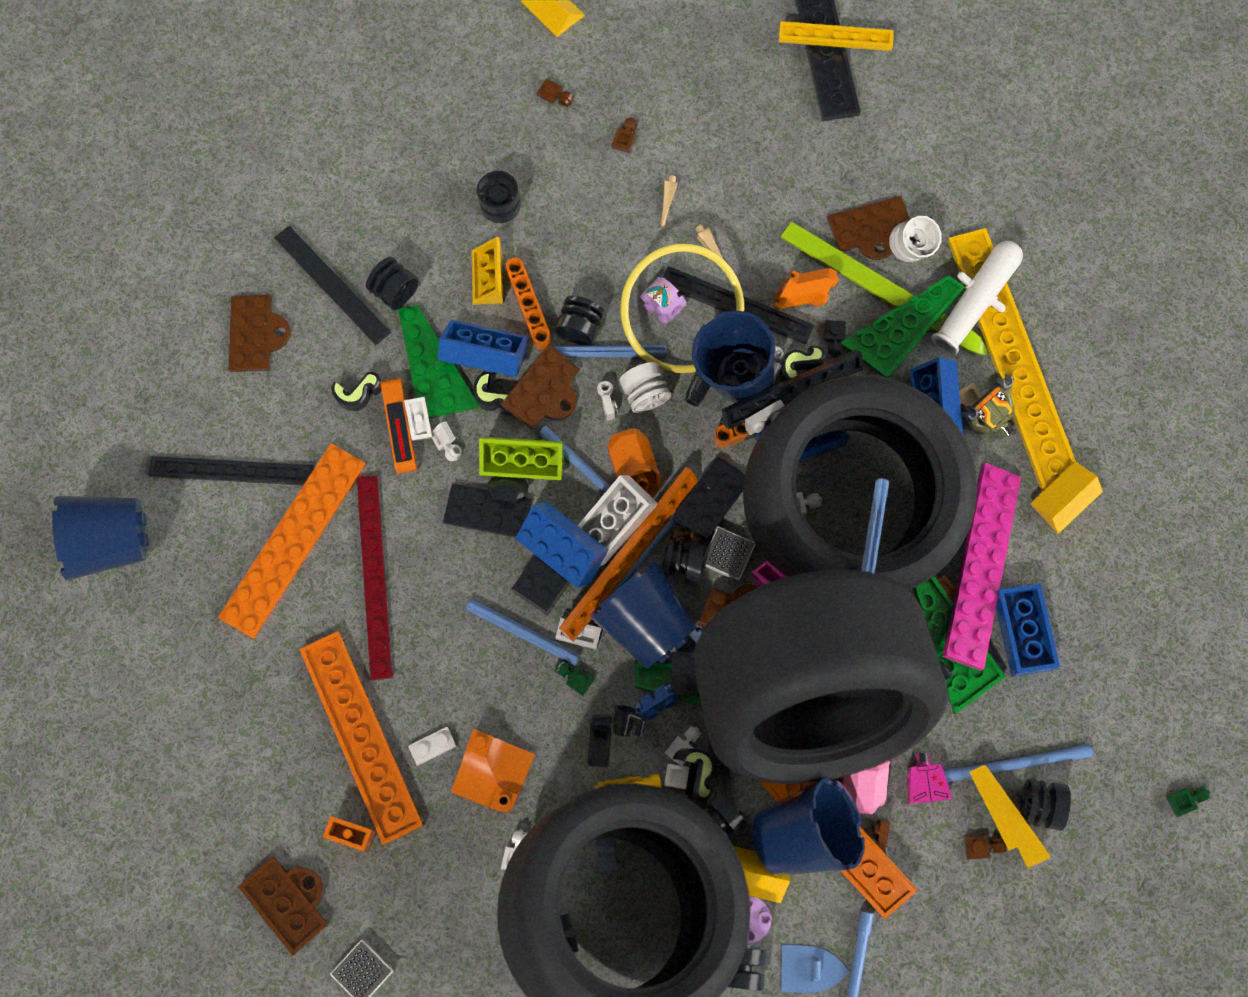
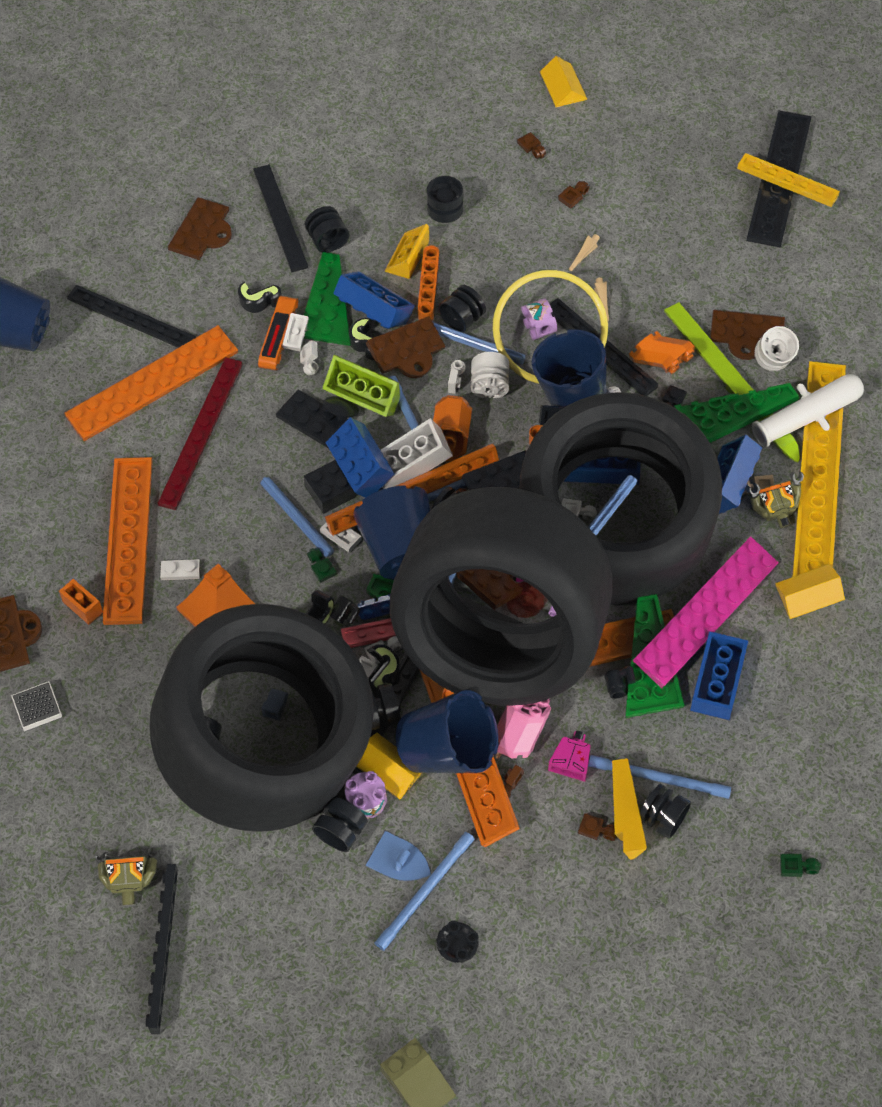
camera: 25 degrees right, 15 degrees down
(663, 732) = (368, 633): none -> coral plate
(696, 391) = (533, 396): black piece -> none

